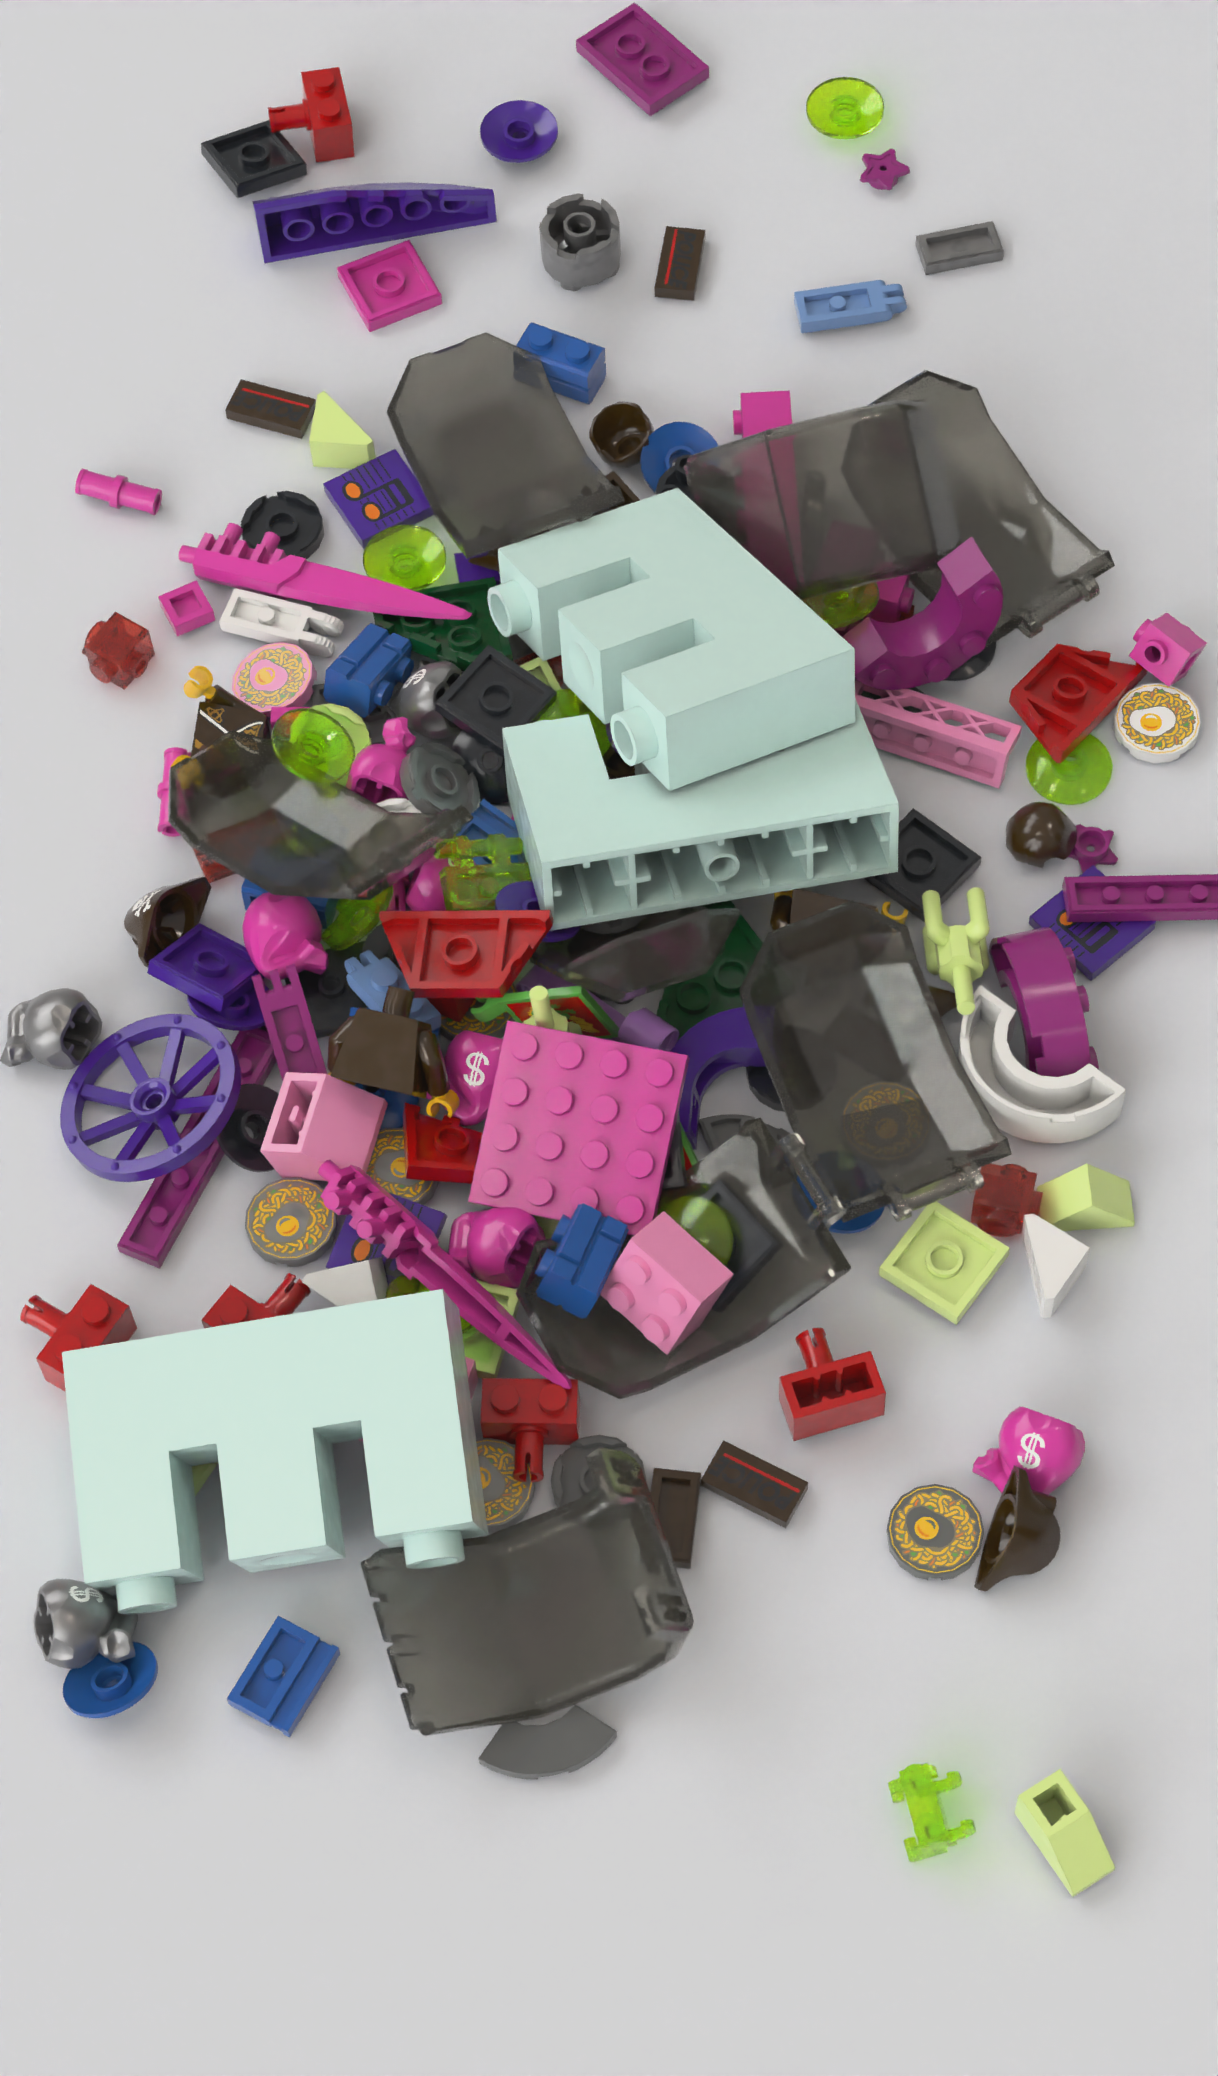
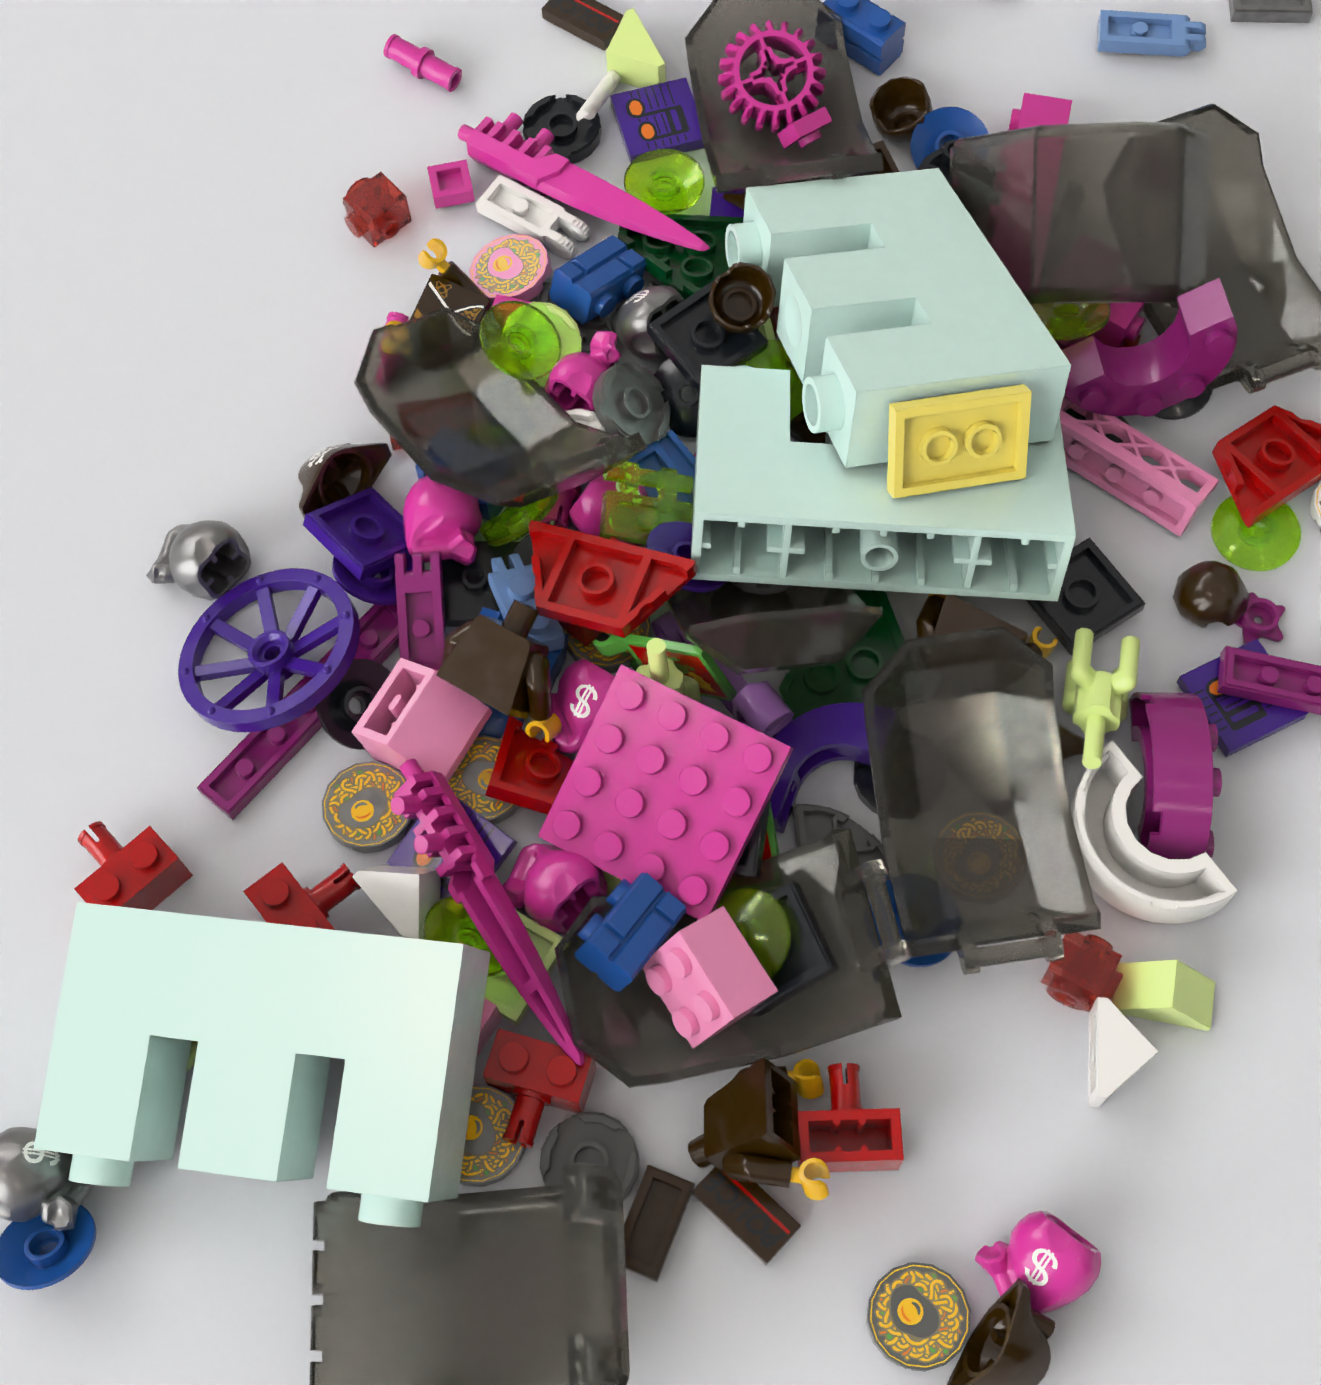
camera: 15 degrees right, 5 degrees up
(283, 1676) = (215, 1288): blue plate -> none
(312, 486) = (599, 96): none -> white wheel
(476, 415) = (800, 62): none -> dark pink gear
(523, 656) = (742, 298): none -> dark brown hair
(534, 477) = (805, 129): none -> dark pink plate
(745, 1404) = (755, 1130): none -> dark brown torso
(768, 741) = (958, 440): none -> light yellow plate
(944, 1261) = (1002, 1021): yellowish green plate -> none

